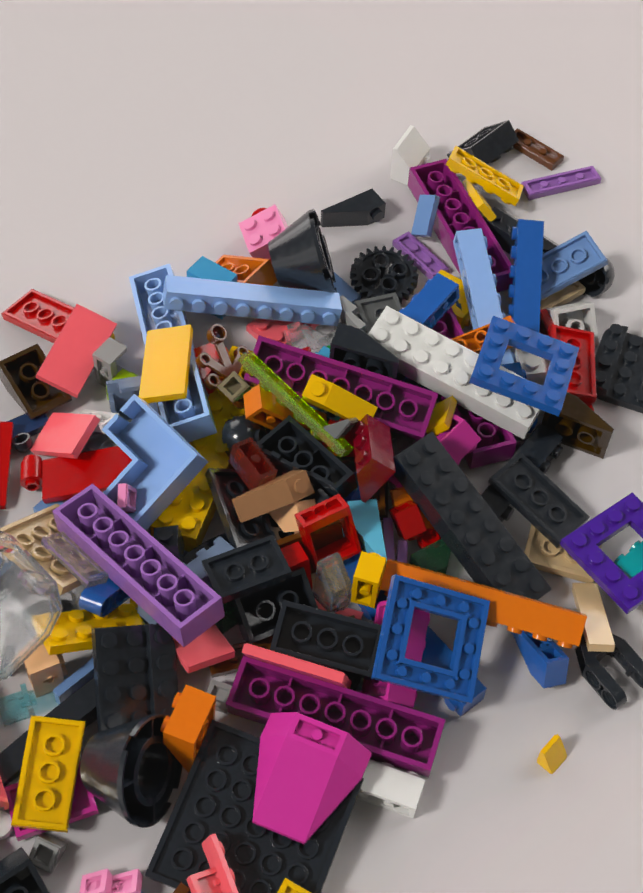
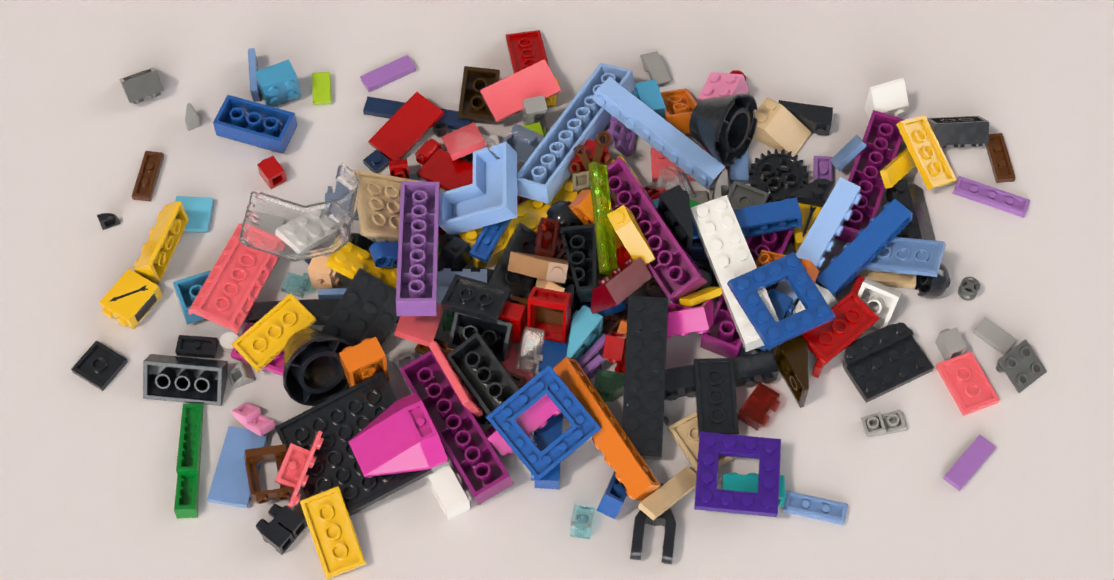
camera: 45 degrees right, 5 degrees up
(21, 506) = (399, 168): none -> red slope
(74, 559) = (389, 220): clear tile -> none
(127, 498) = (455, 205): bright pink tile -> none
(166, 364) = (556, 137): yellow tile -> none
(176, 251) = (655, 67): none -> light grey slope
(190, 512) = (488, 240): none -> blue tile
(202, 323) = (624, 137): none -> medium lavender plate
(341, 428) = (614, 254): dark grey slope -> none
(345, 235) = (779, 128): none -> tan slope
(368, 579) = (544, 355): yellow brick -> none
(430, 264) = (814, 193): none -> black wing
(540, 710) = (581, 521): none -> clear light blue bracket
(552, 754) = (562, 551): yellow slope -> none
(575, 480) = (759, 406): none -> clear red brick
(625, 263) = (971, 284): none -> dark grey wheel

